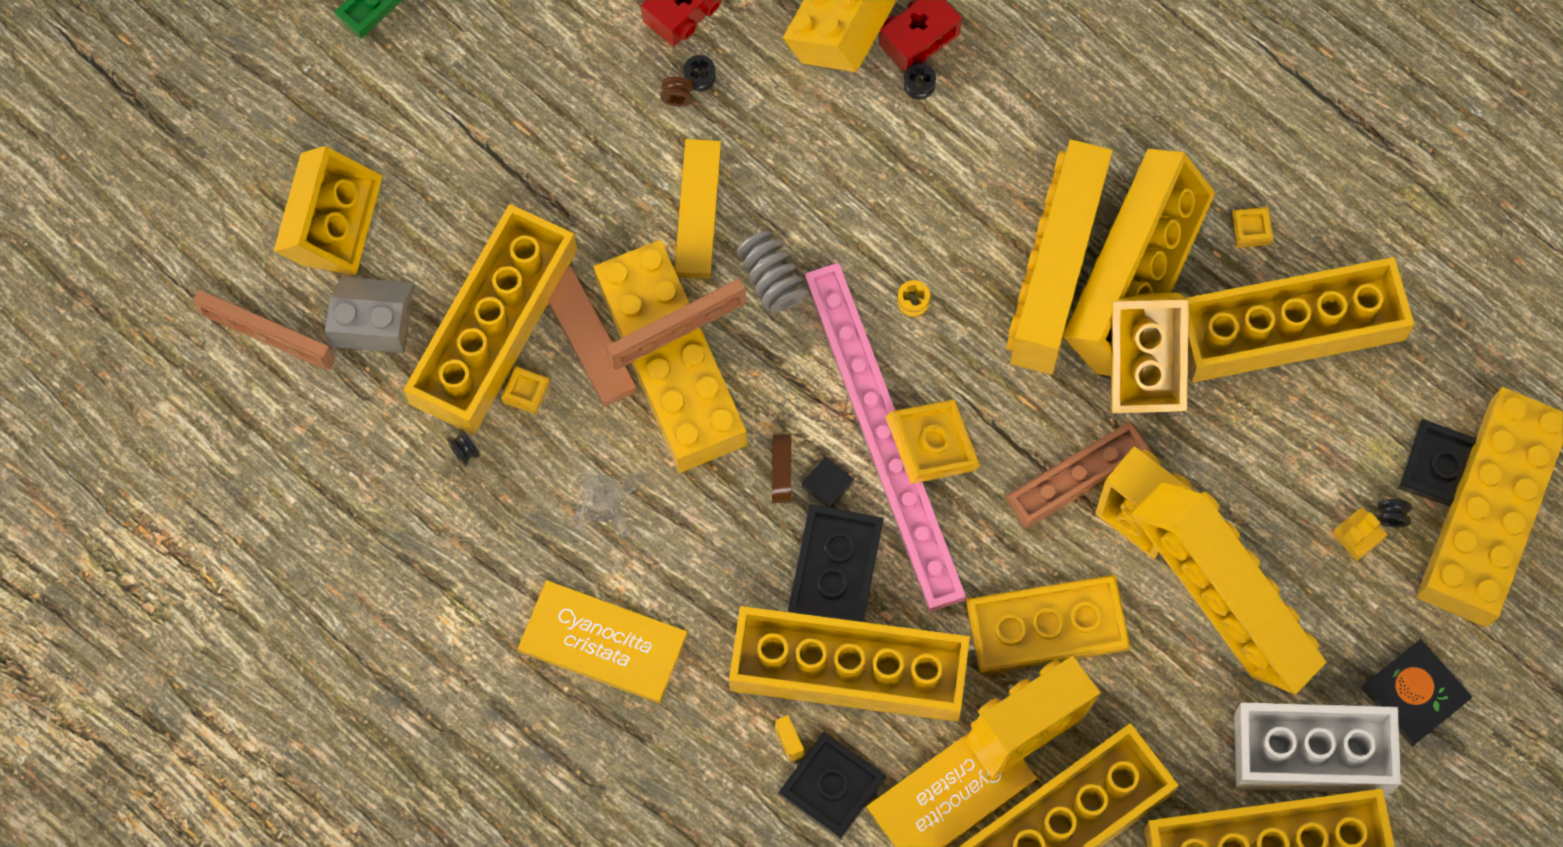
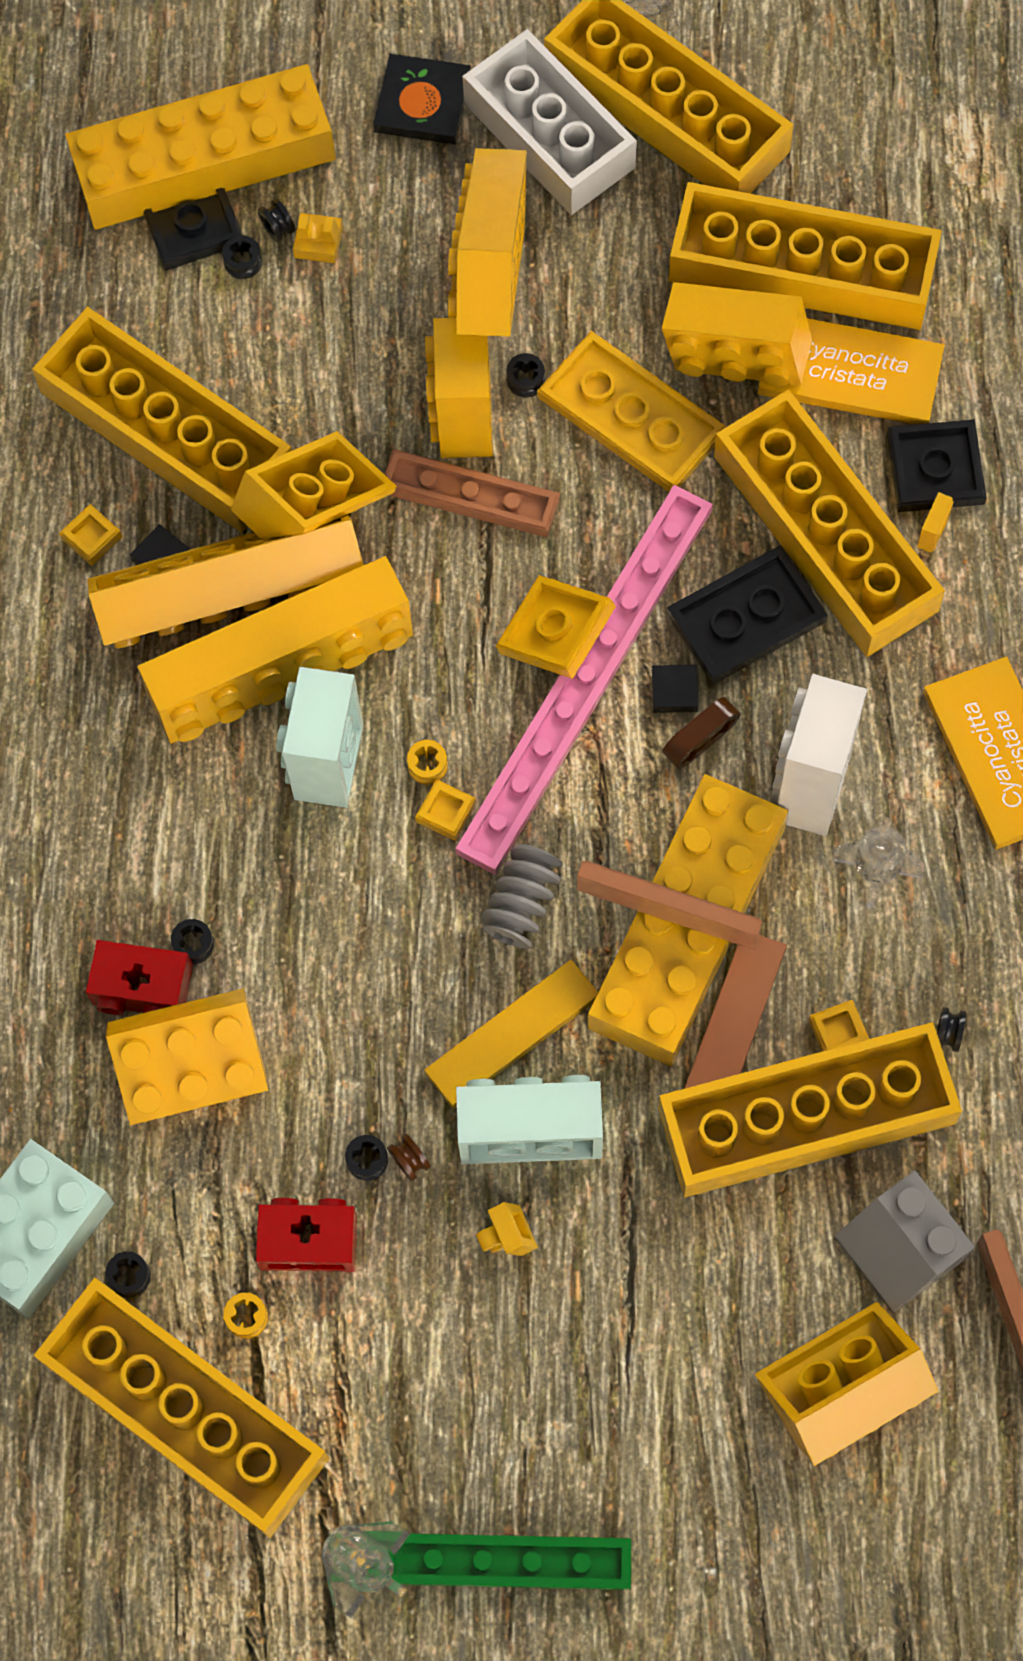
camera: 130 degrees left, 0 degrees up
(582, 108) = (508, 1231): none -> yellow tile
(629, 159) = (529, 1120): none -> light aqua brick
(686, 487) = (817, 752): none -> white brick
(873, 285) = (445, 810): none -> yellow tile
(972, 225) = (321, 736): none -> light aqua brick
(1142, 569) = (525, 363): none -> black bush
(1202, 258) = (157, 545): none -> black tile
(1391, 464) = (244, 269): none -> black bush

